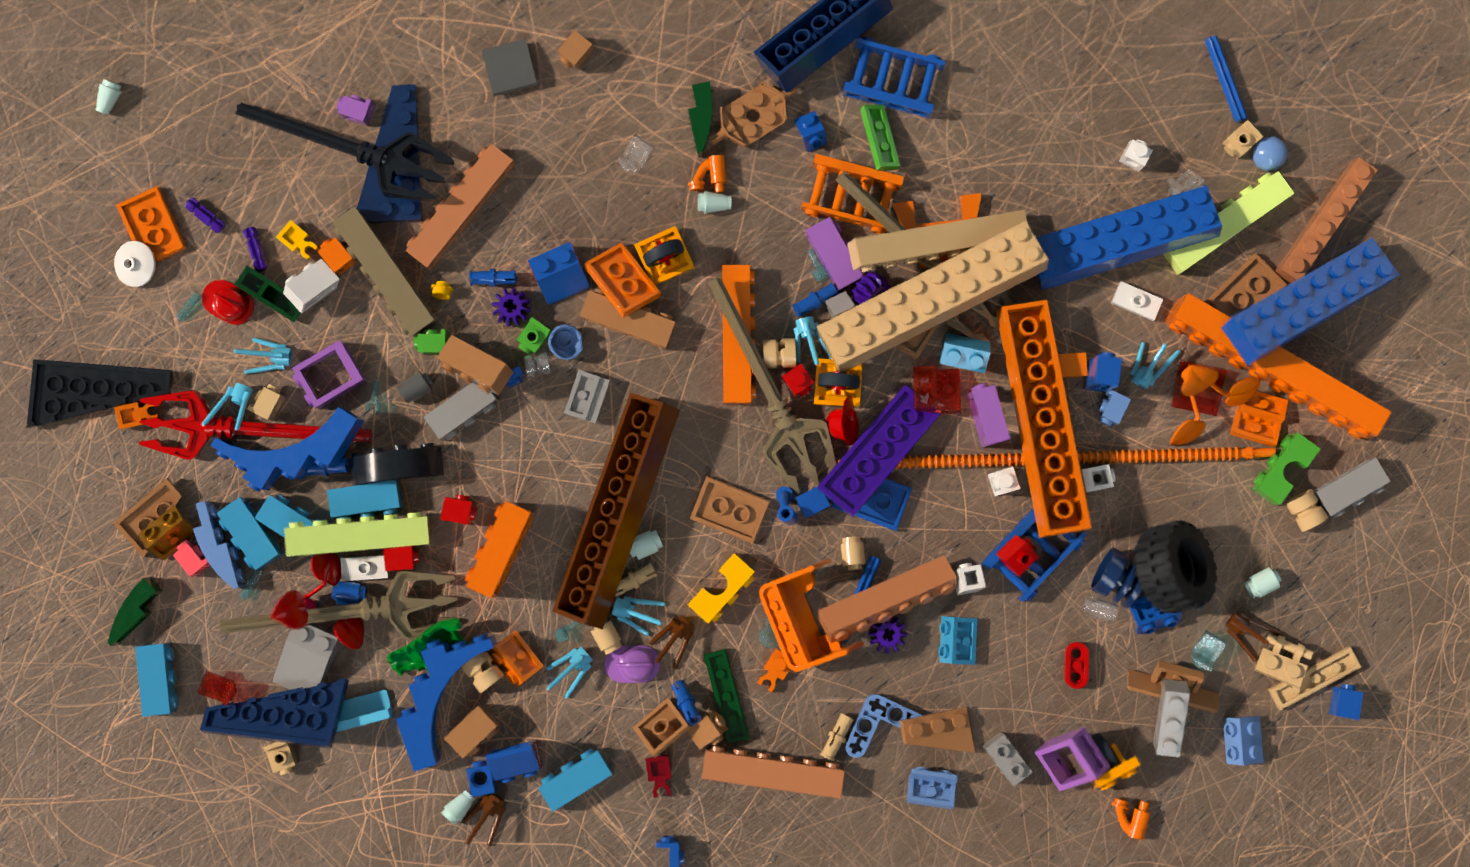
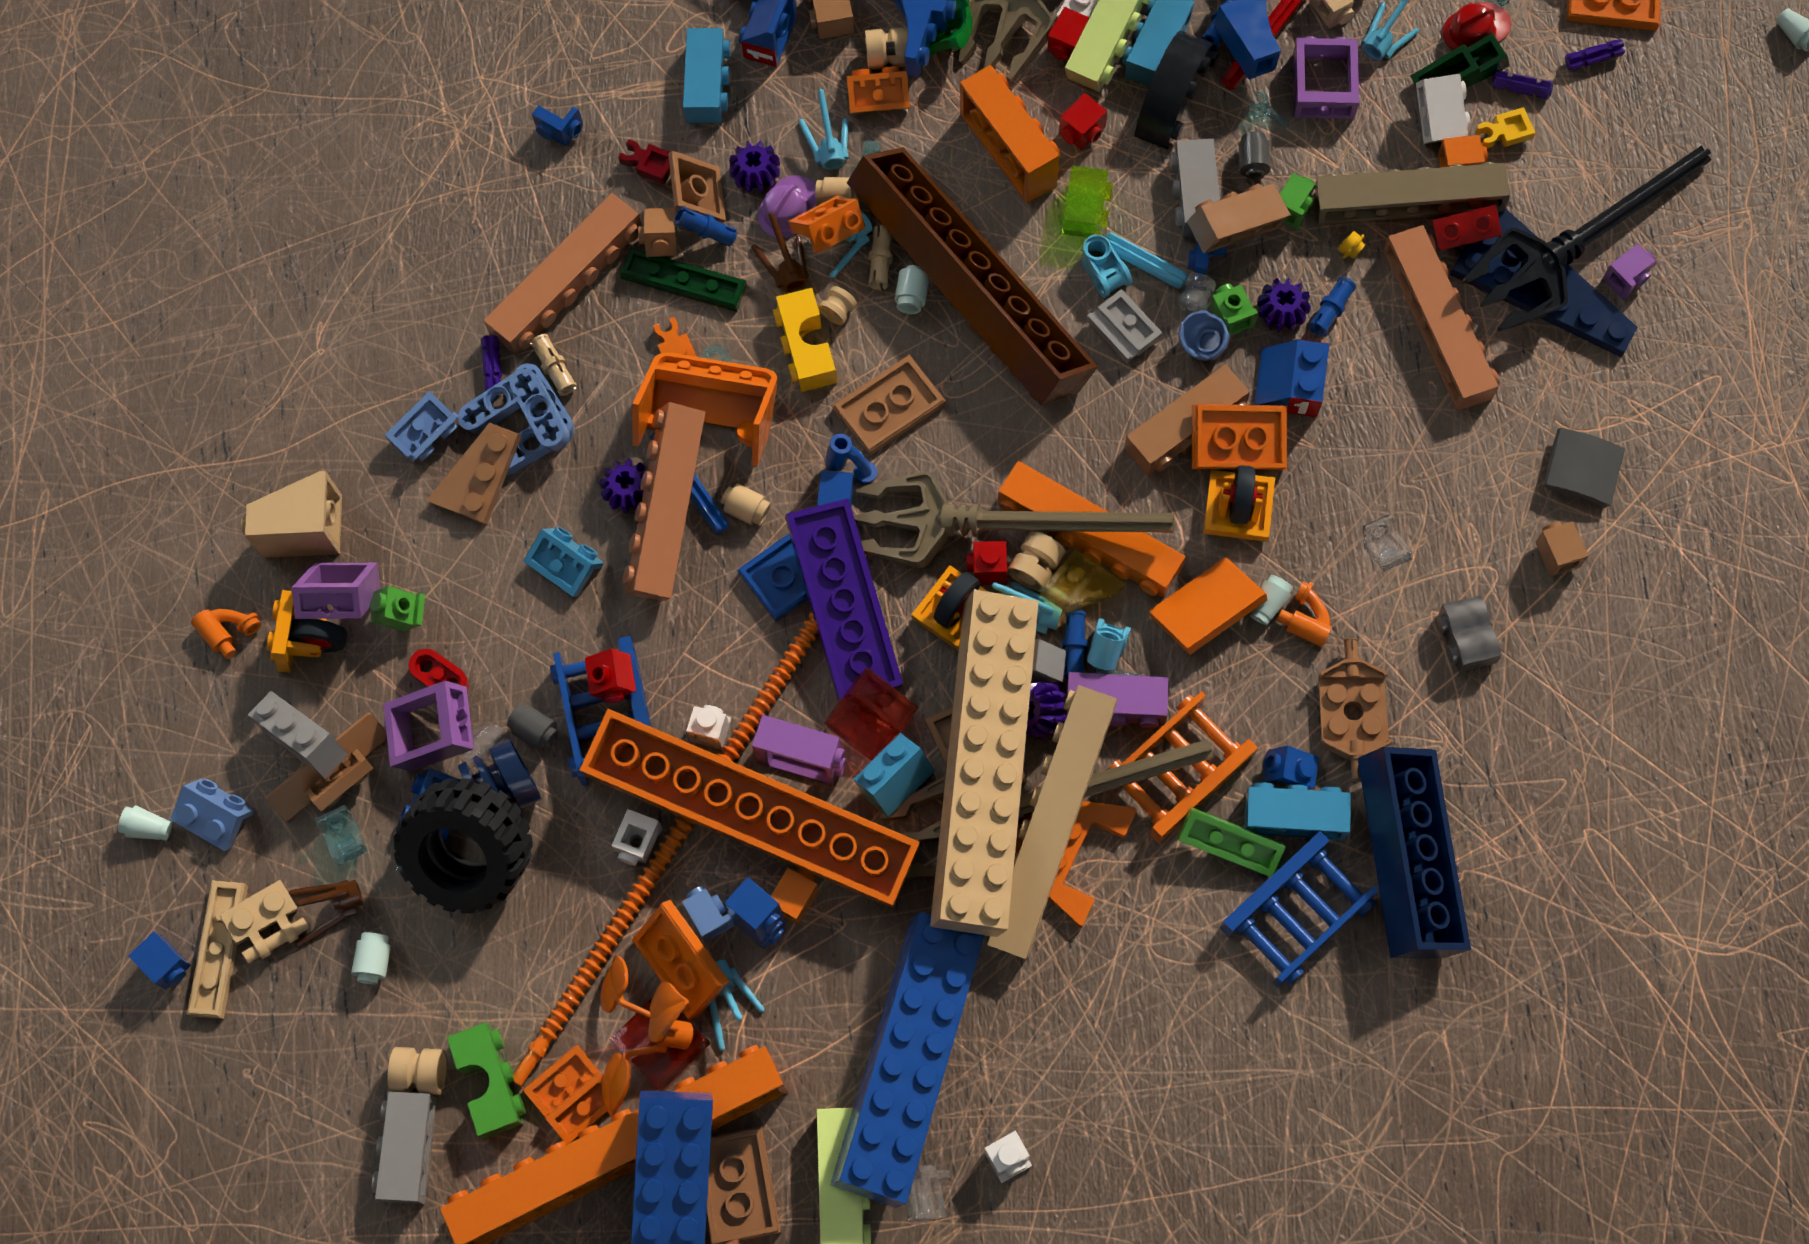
camera: 125 degrees right, 15 degrees down
(389, 222) = (1467, 227): none -> red bracket
(515, 473) = (1085, 202): none -> clear neon green brick
(531, 410) = (1147, 261): none -> medium azure axle
(554, 432) = (1105, 271): none -> medium azure piece
(616, 696) = (754, 166): none -> dark purple gear
(637, 623) = (829, 222): none -> orange bracket
(663, 75) = (1469, 634): none -> flat silver brick
(685, 584) = (837, 305): none -> tan wheel
(701, 116) = (1387, 648): dark green slope -> none
(742, 235) = (1208, 605): none -> orange tile
(776, 319) = (1081, 583): none -> clear yellow wing
(806, 278) = (1107, 645): none -> medium azure piece
(836, 111) = (1297, 811): none -> dark azure brick
(844, 422) = (902, 585): red piece -> none
(861, 777) = (491, 361): none -> dark purple axle
(876, 741) = (516, 399): none -> medium blue beam
(969, 579) = (624, 609): white brick -> none
(1007, 759) = (392, 528): light grey brick -> none
(1043, 818) = (296, 519): none -> tan slope
(1055, 717) = (397, 608): none -> bright green brick
(1071, 585) = (532, 727): none -> dark grey brick
(1094, 638) = (455, 734): none -> medium lavender window
(1136, 301) = (819, 1035): white plate -> none
(1151, 403) = (680, 958): none -> orange tile
(1276, 774) = (143, 824): none -> light aqua cone

